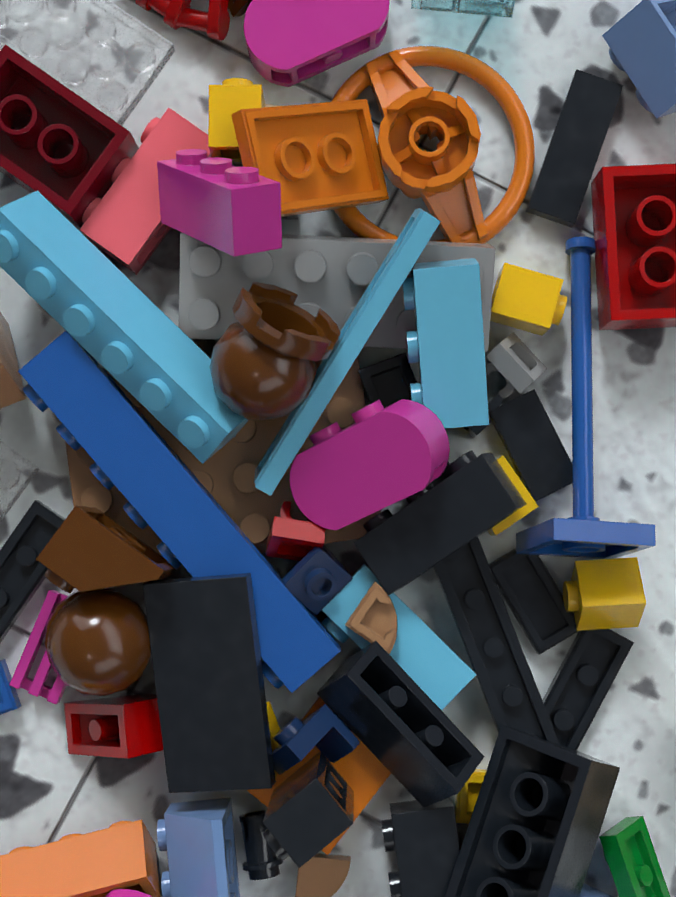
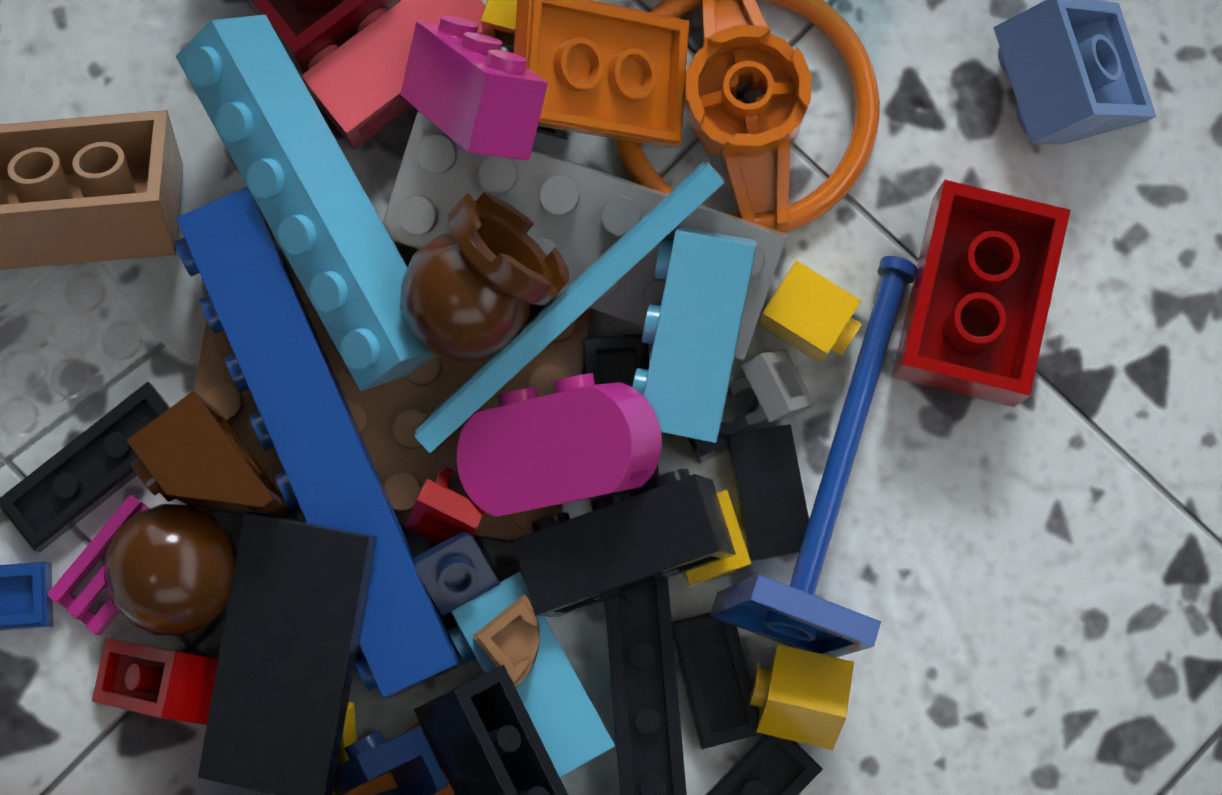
camera: 10 degrees right, 5 degrees down
(574, 148) = (923, 152): black tile -> none

